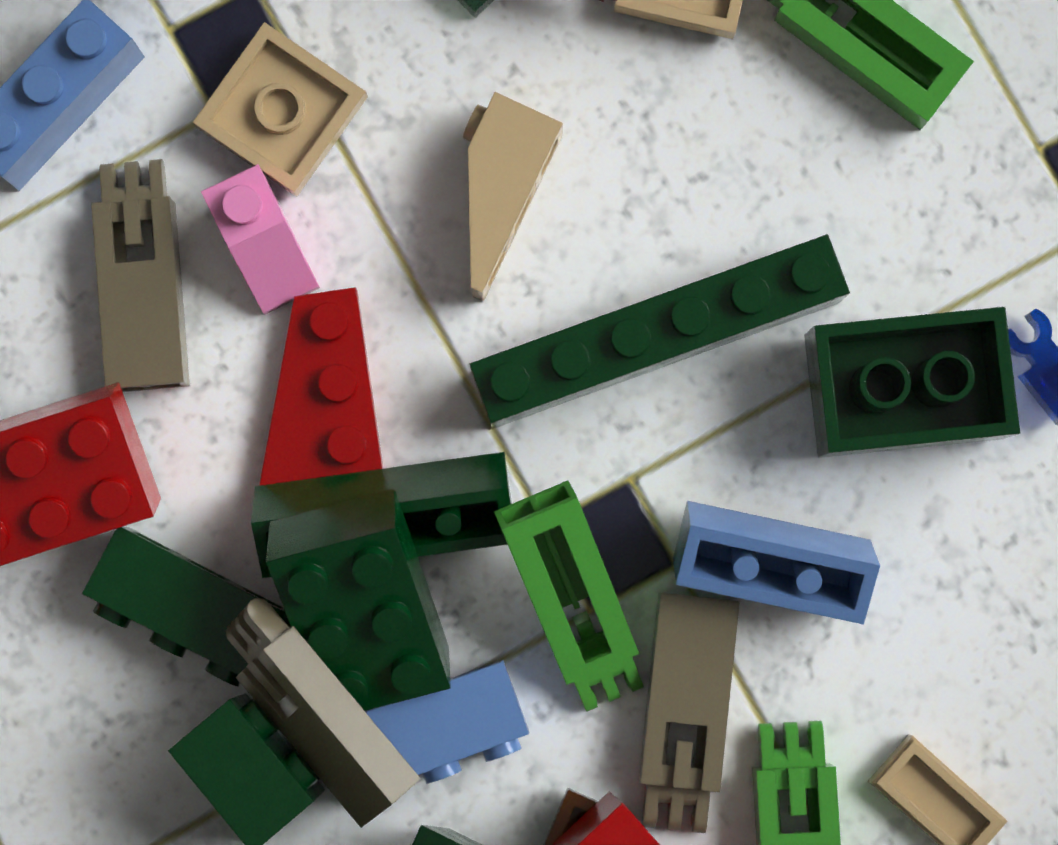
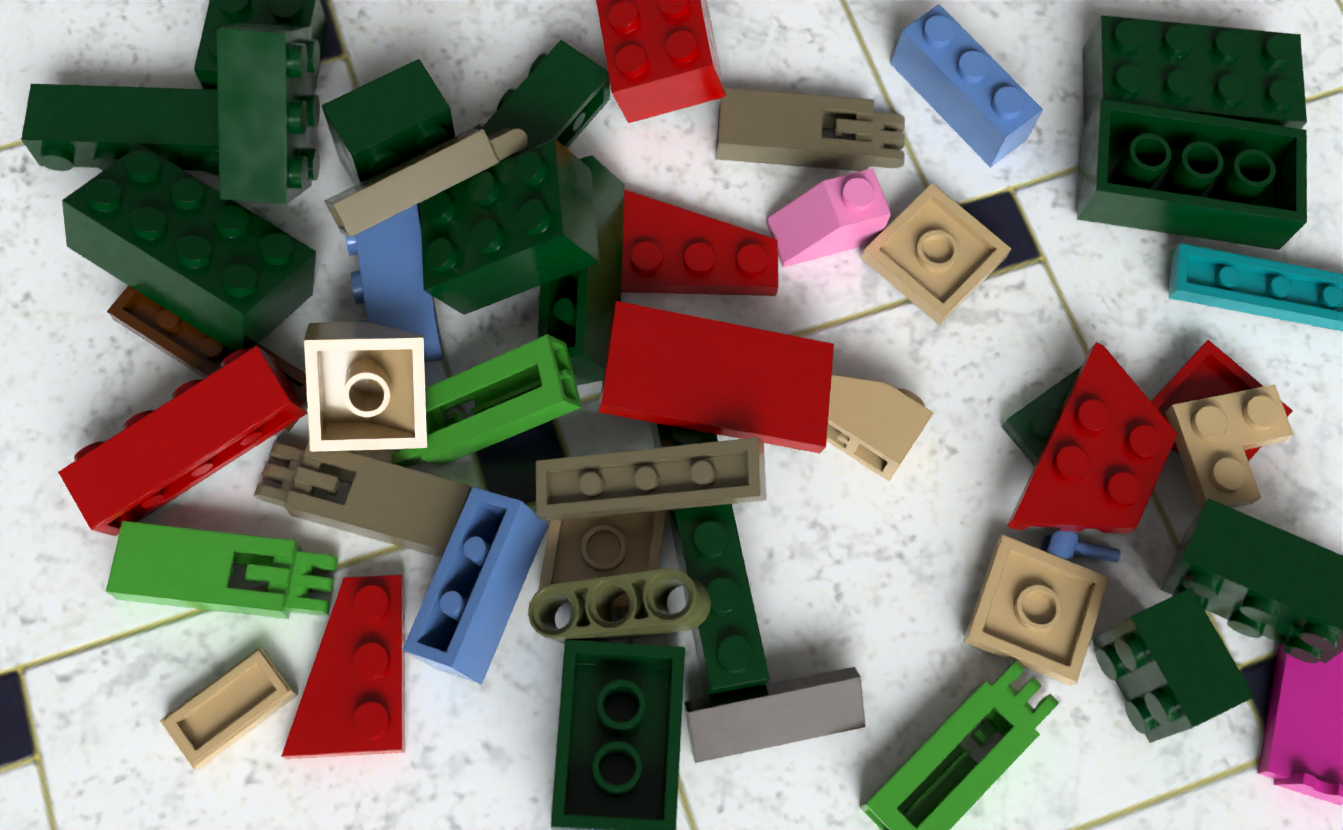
camera: 95 degrees right, 15 degrees down
(507, 335) = (717, 377): none -> red tile
(579, 728) = (364, 387): none -> tan slope
(642, 389) = (651, 479): none -> dark tan plate
(702, 435) = (603, 548): none -> tan plate
(804, 423) = (593, 600): none -> olive beam
(849, 220) = (775, 714): none -> tile
(881, 673) = (357, 677): none -> red wing

